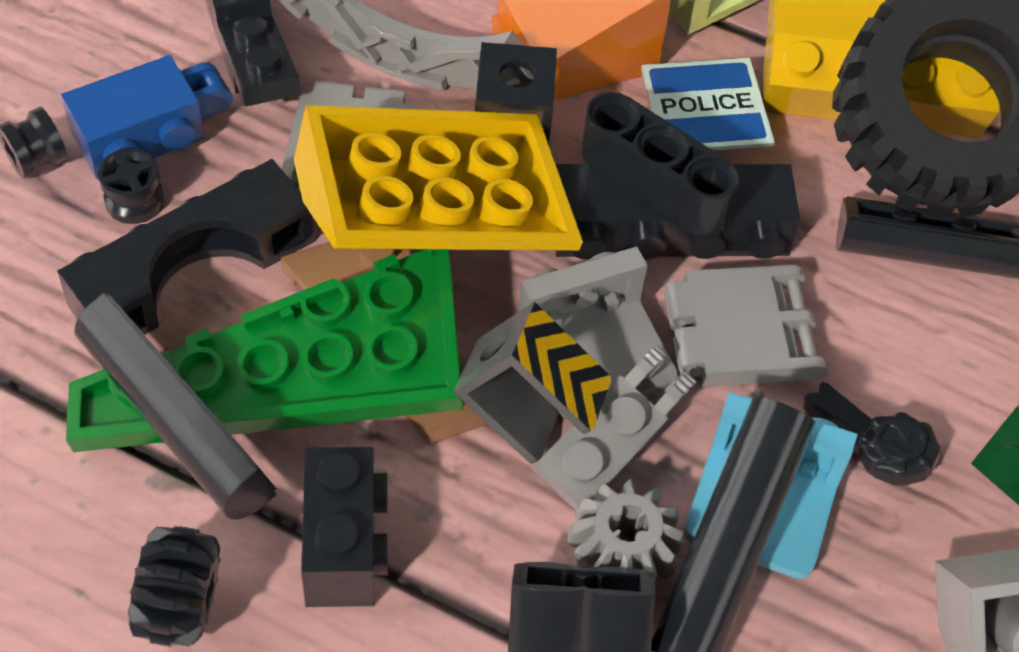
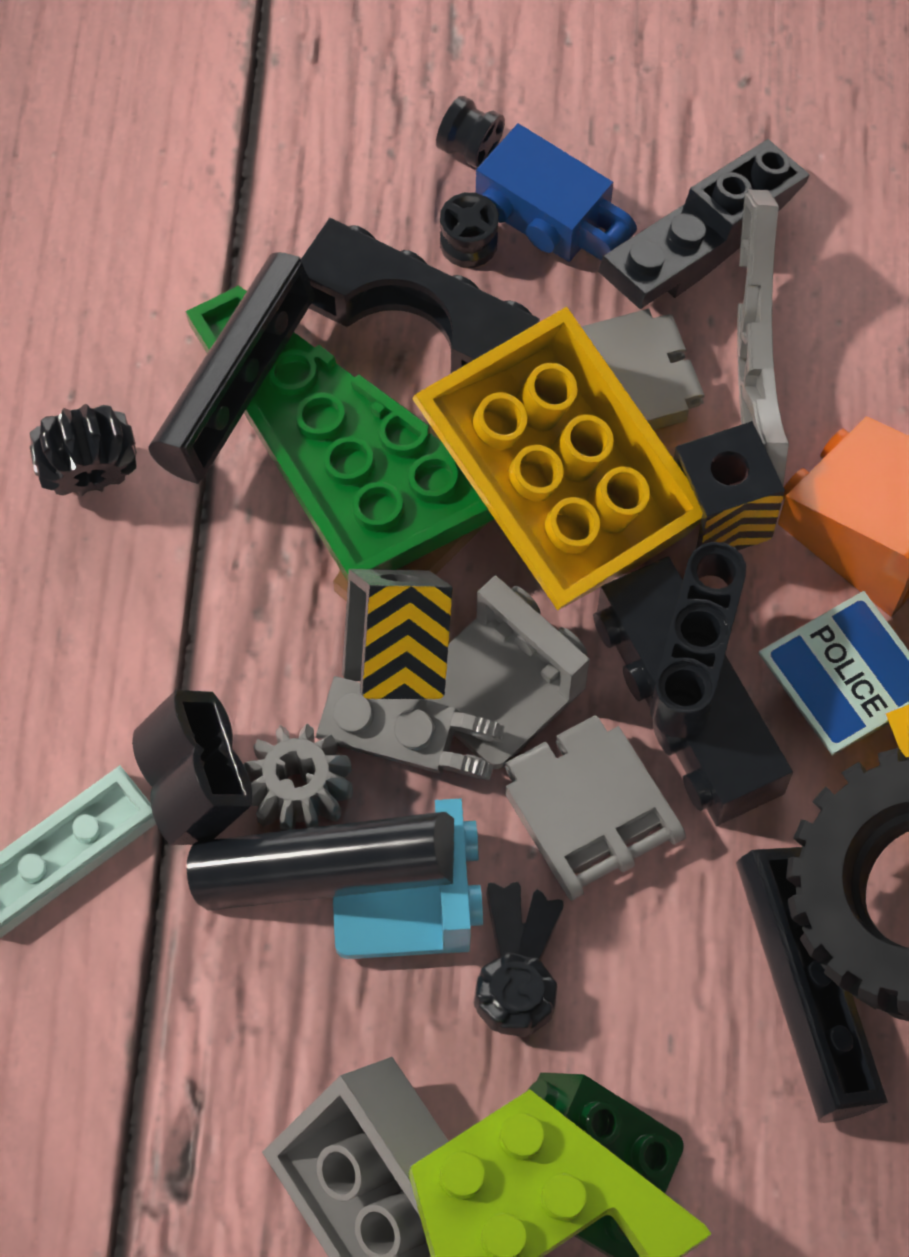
camera: 70 degrees right, 10 degrees up
(339, 527) = (199, 547): black brick -> none

